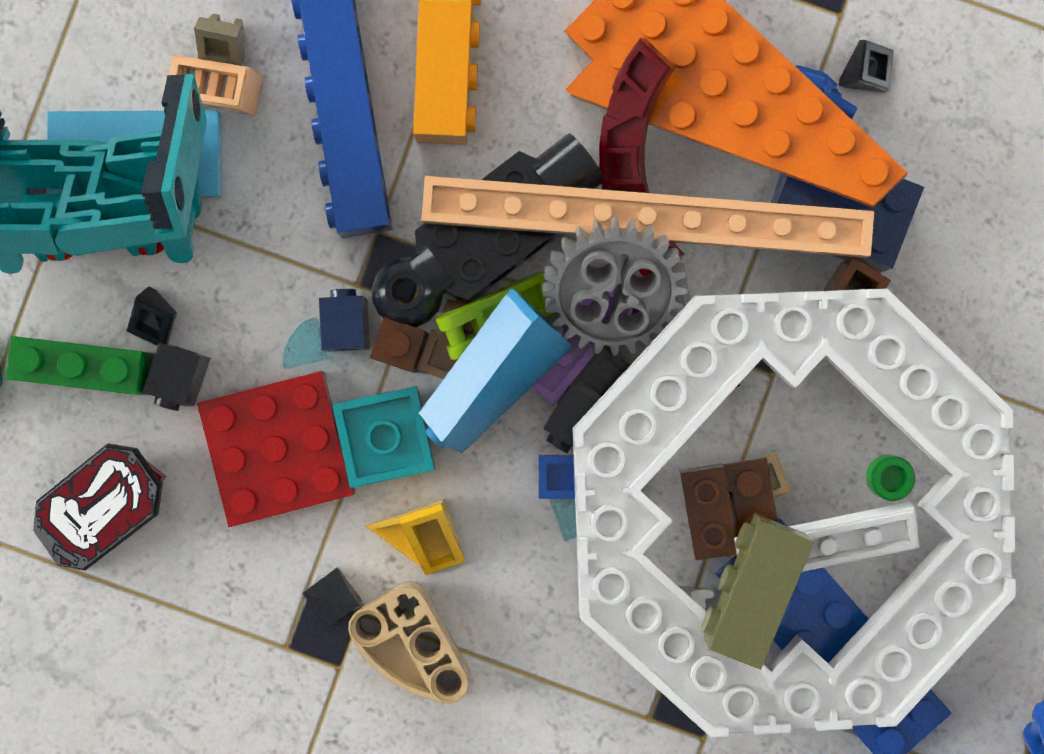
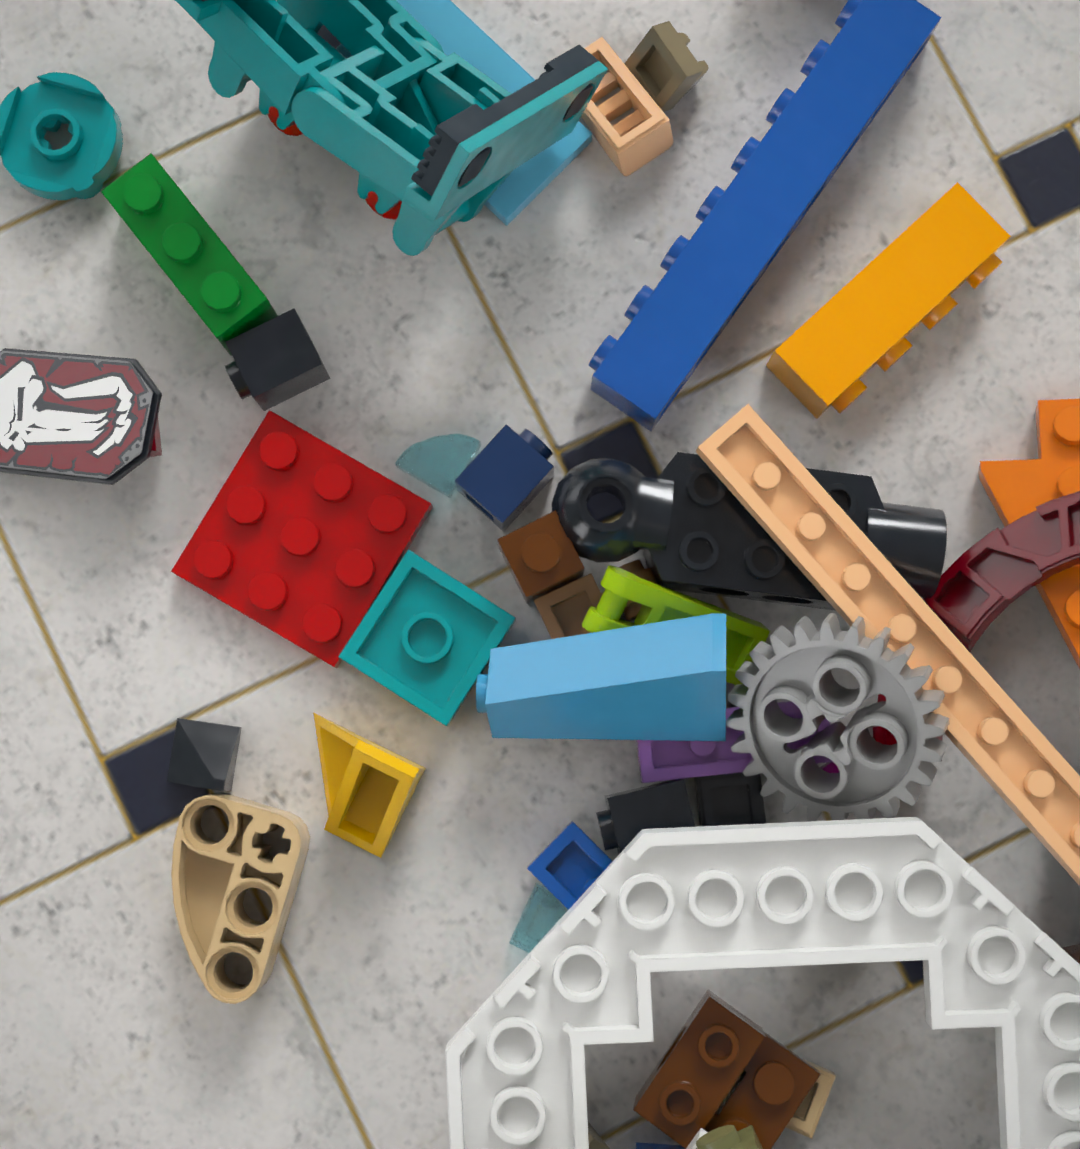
camera: 45 degrees right, 5 degrees down
(151, 317) = (312, 277): black slope -> none

